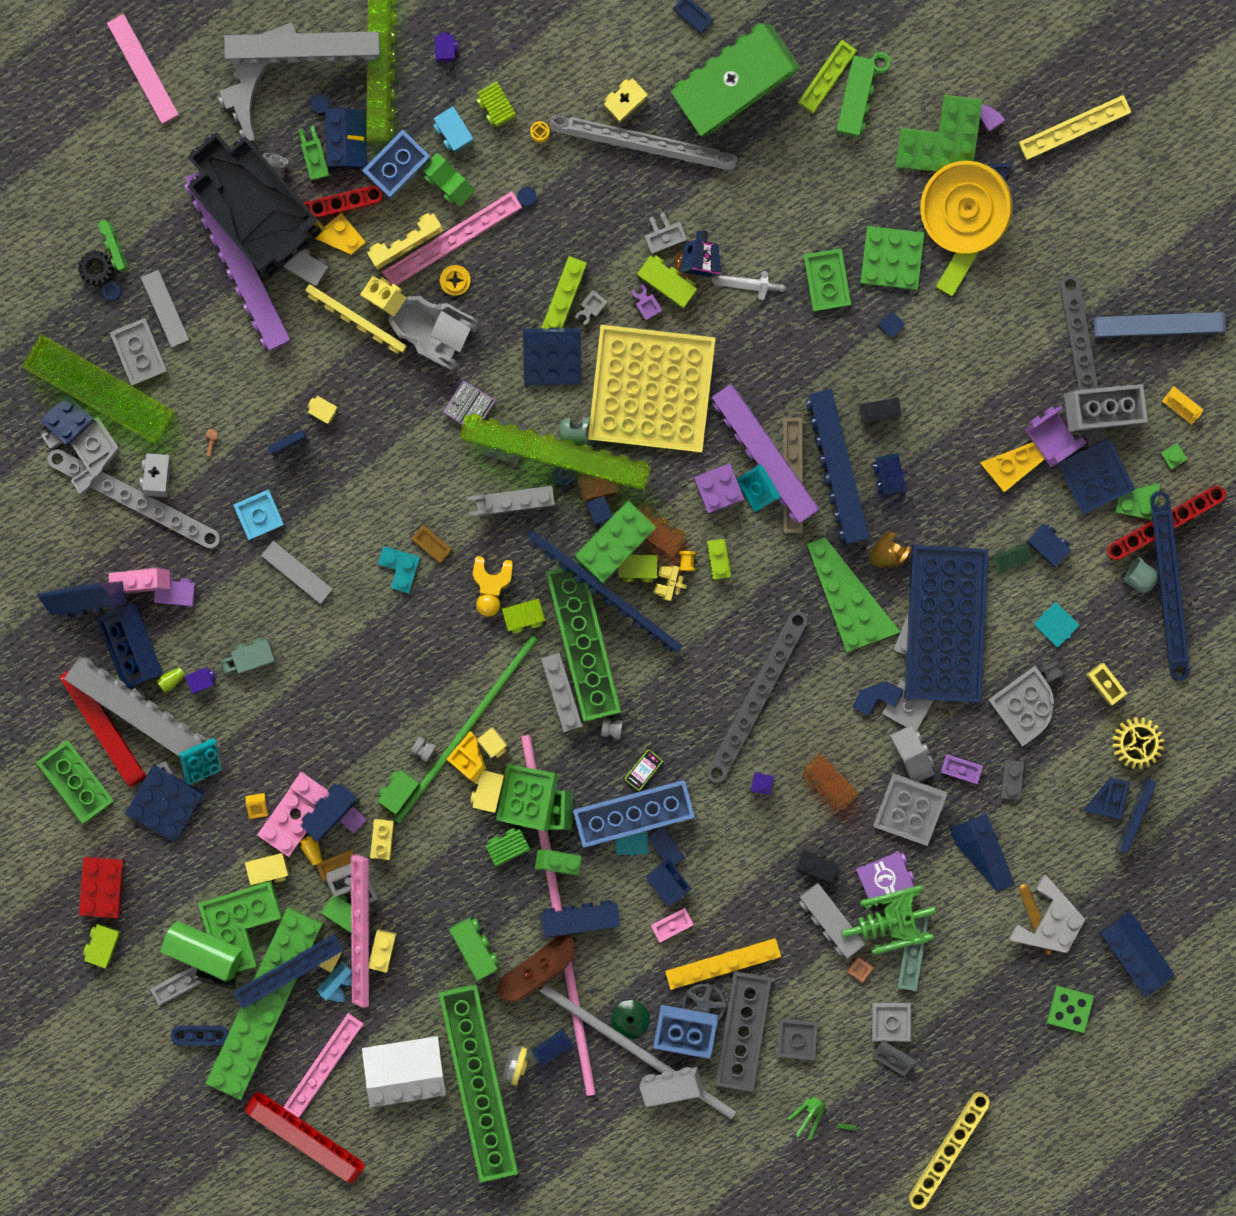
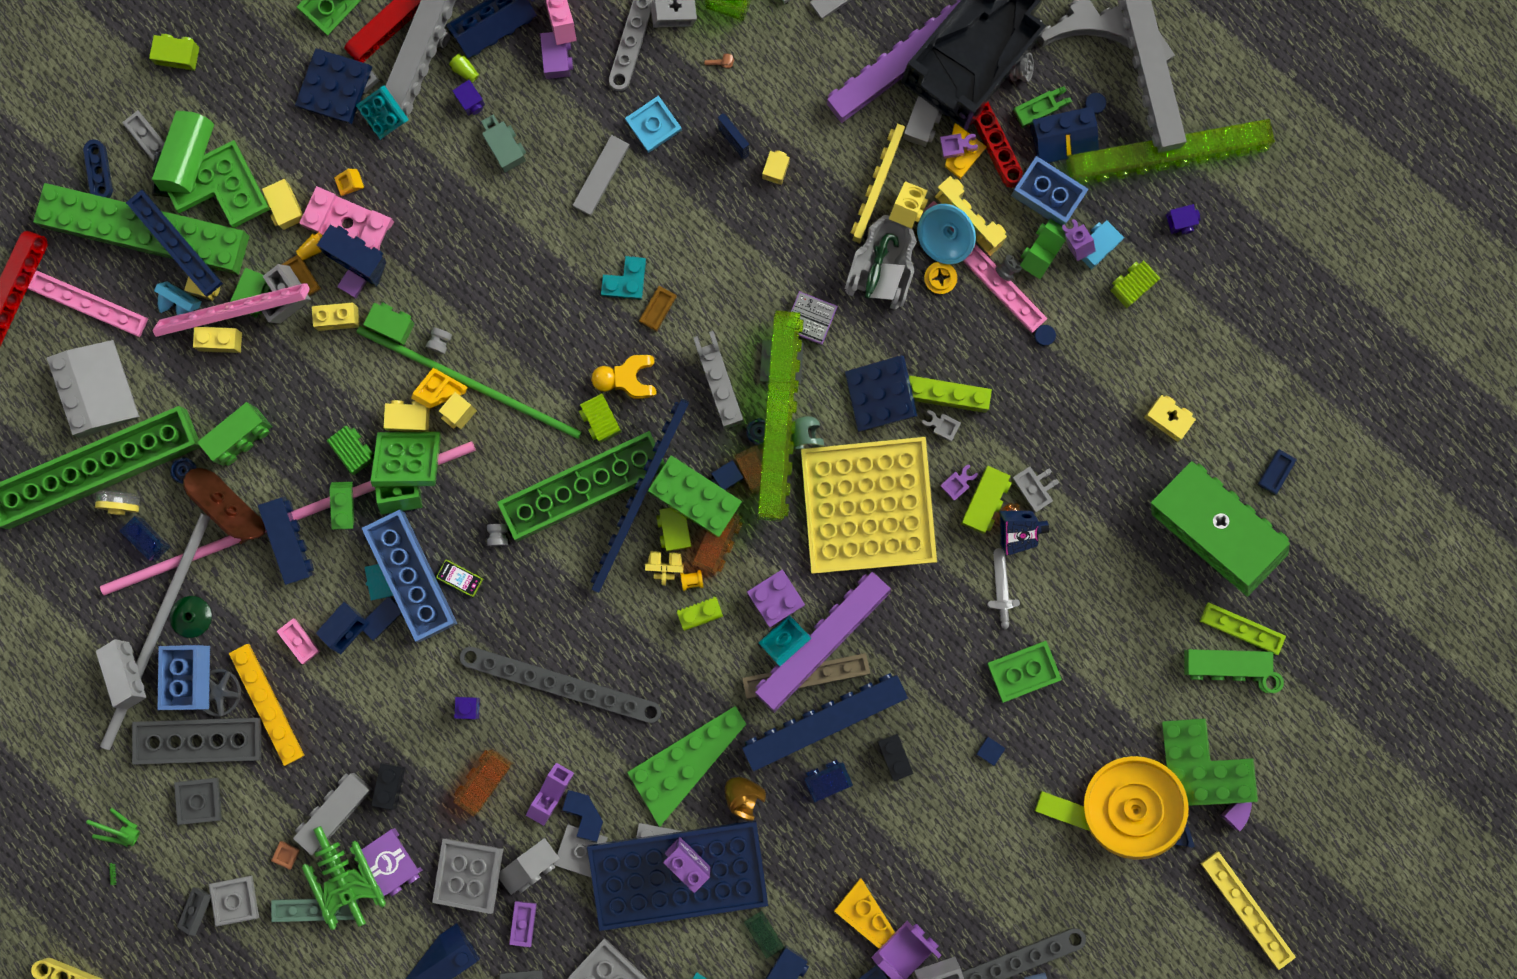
camera: 80 degrees right, 5 degrees down
(101, 887) = (234, 39): red brick -> none
(336, 242) = (954, 145): none -> medium lavender plate
(423, 272) = (939, 240): none -> medium azure dish
(440, 339) = (881, 252): none -> dark green piece
(449, 148) = (1079, 240): none -> medium lavender brick
(459, 217) = (1008, 268): none -> dark grey wheel
(493, 1008) = (178, 466): none -> dark blue plate
(539, 135) = (1116, 338): yellow wheel -> none
(561, 692) = (525, 474): light grey brick -> none
(643, 142) = (1129, 446): light grey plate -> none
(852, 723) = (550, 794): none -> medium lavender brick
(892, 258) = (1062, 737): bright green plate -> none
(938, 611) = (687, 864): none -> medium lavender panel

